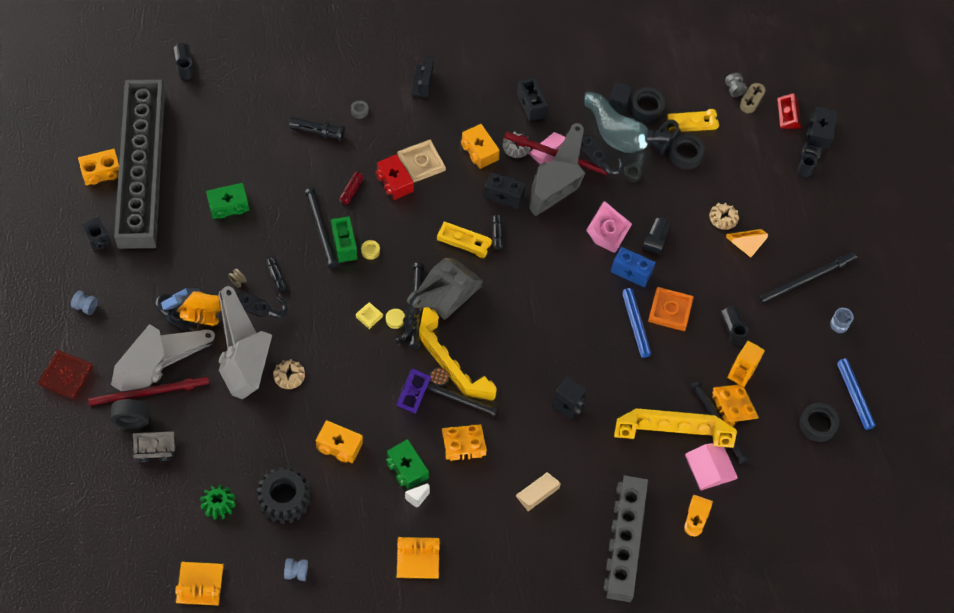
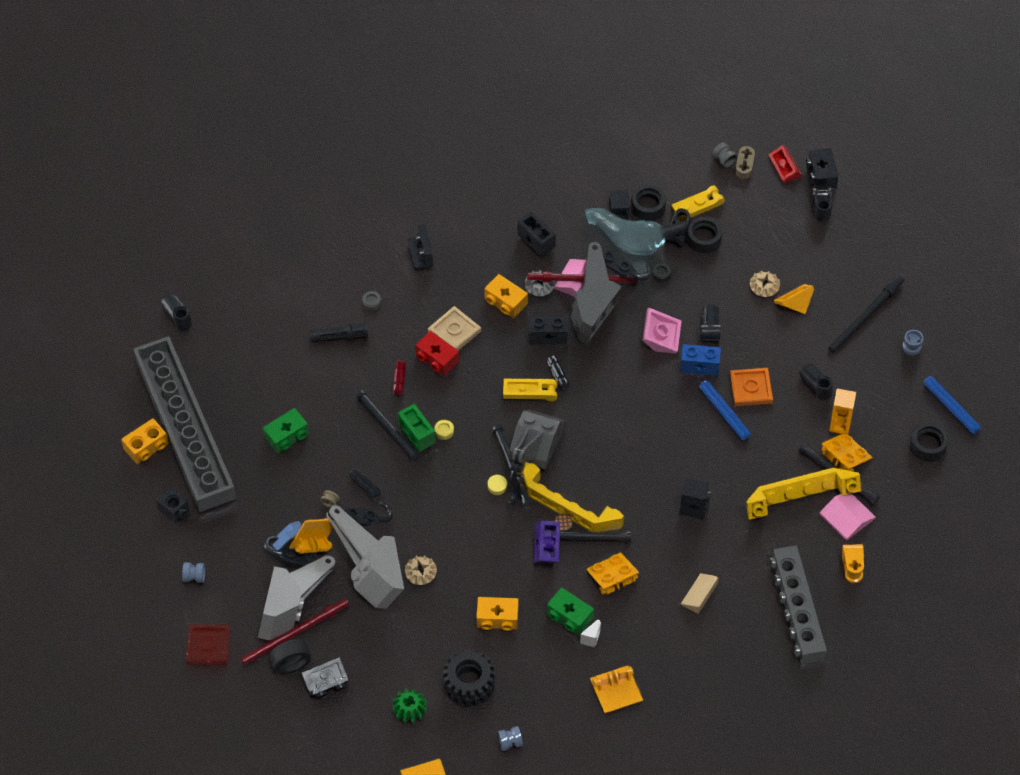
camera: 15 degrees left, 5 degrees down
(369, 315) = (471, 490): light yellow tile -> none

